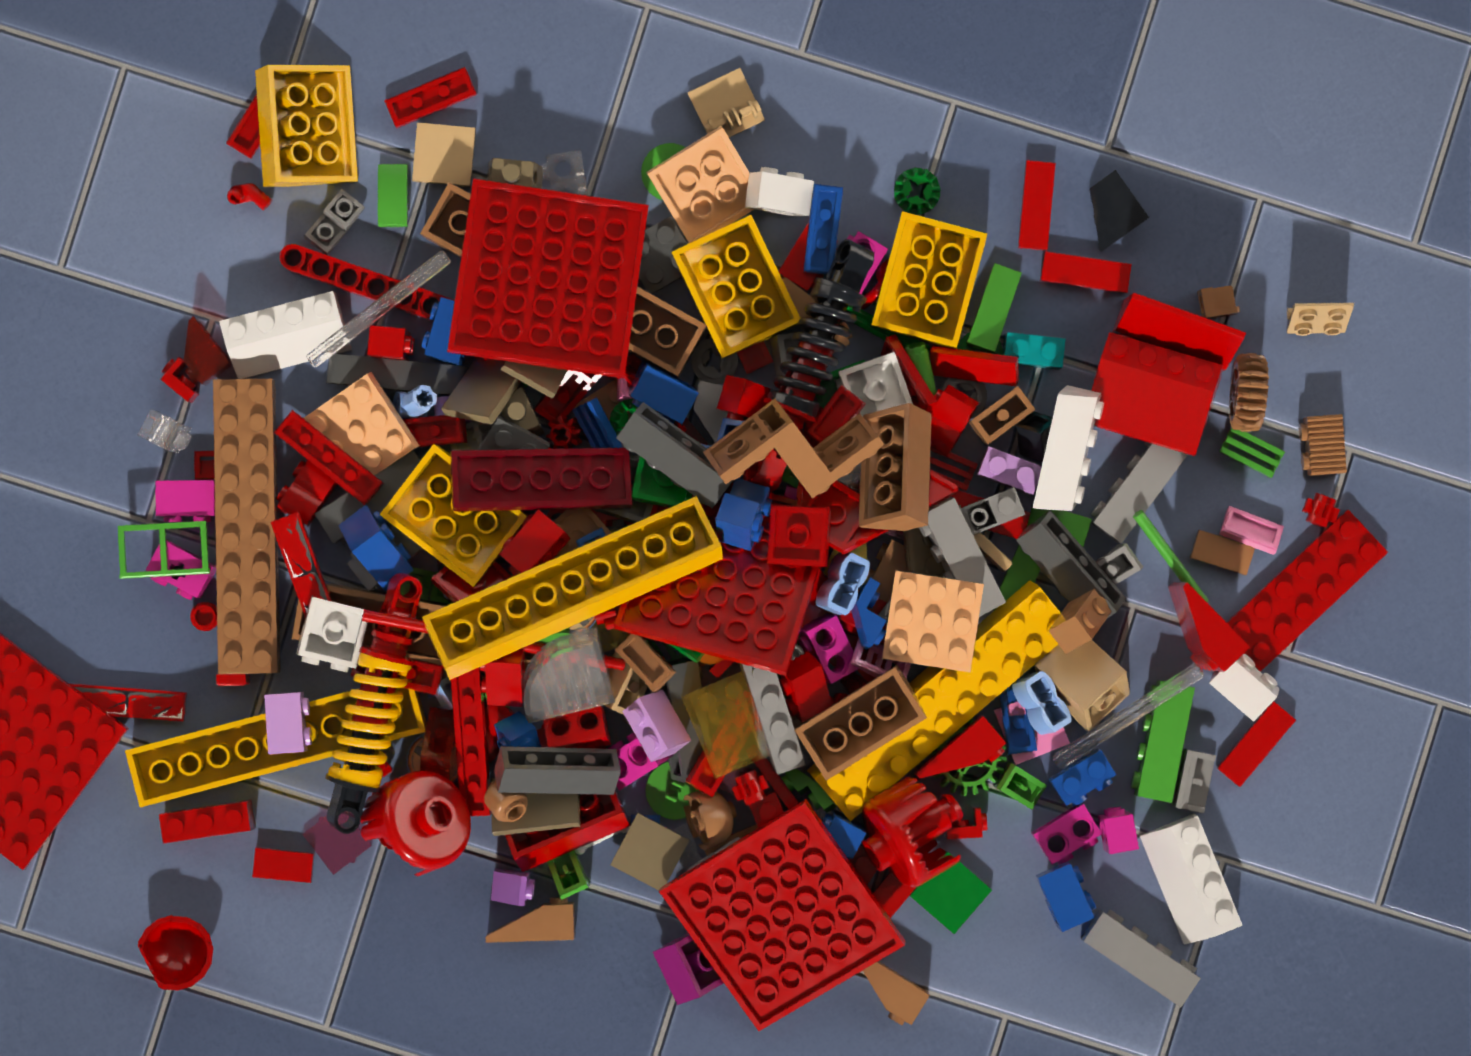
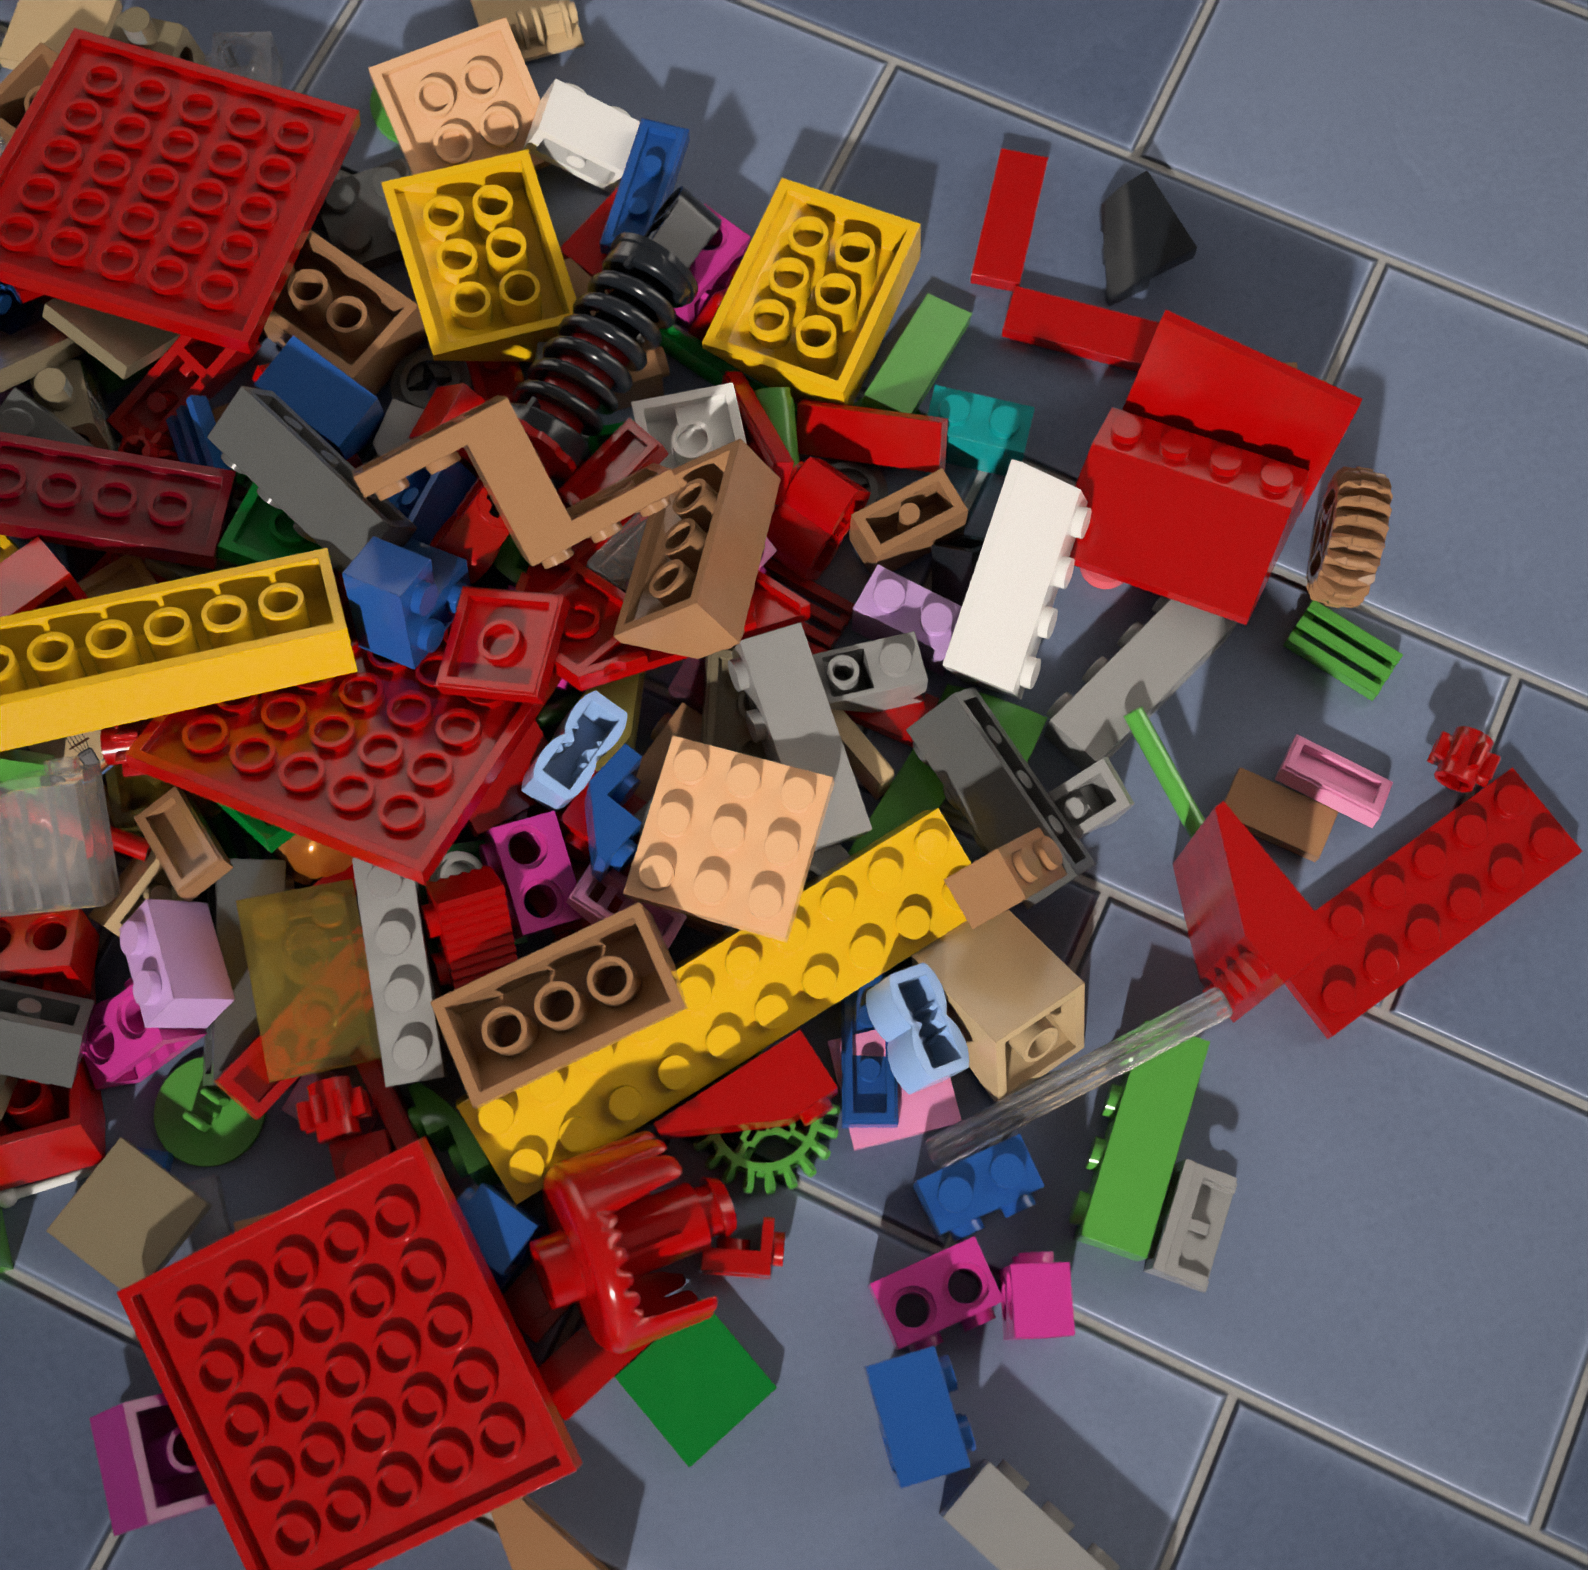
camera: 10 degrees right, 15 degrees down
(709, 818) = (258, 1165): medium nougat cylinder -> none
(915, 204) = (836, 165): green gear -> none
(1020, 785) = (858, 1187): bright green slope -> none
(1190, 879) = (1171, 1425): white slope -> none
(1246, 687) = (1305, 1054): white brick -> none
(1256, 744) = (1315, 1172): red tile -> none
(1318, 318) = (1480, 434): tan hinge -> none
(1323, 445) = (1474, 651): medium nougat brick -> none

